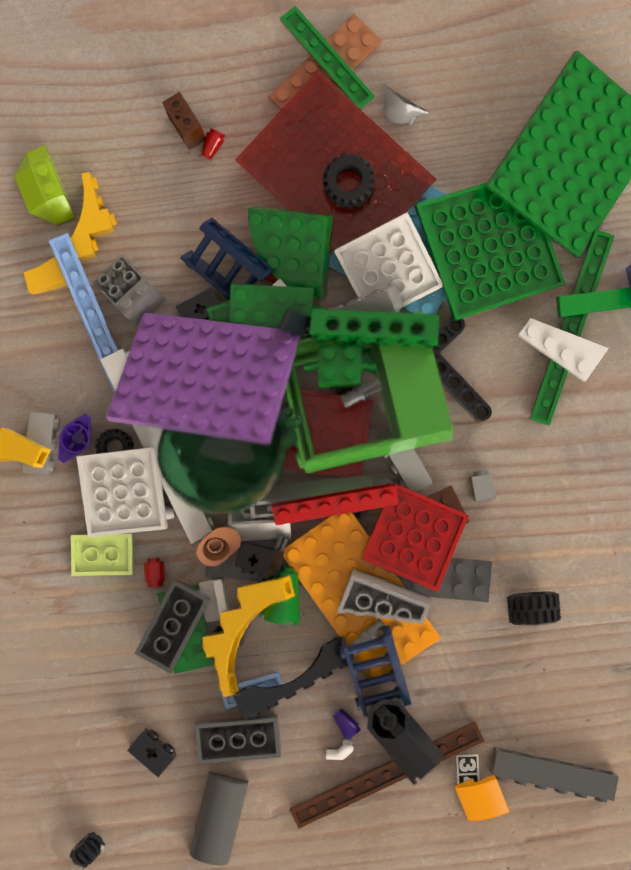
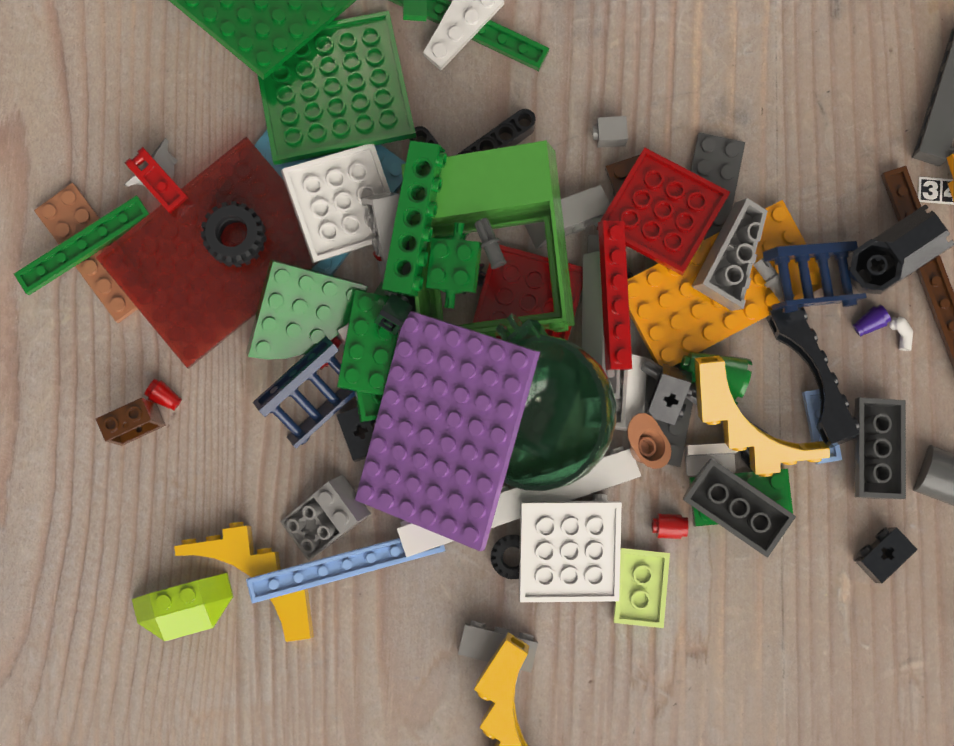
camera: 80 degrees left, 5 degrees down
(74, 438) = (497, 601): dark purple hat -> none
(387, 110) = (157, 180): none -> red plate
(534, 608) = (759, 88): black tyre -> none

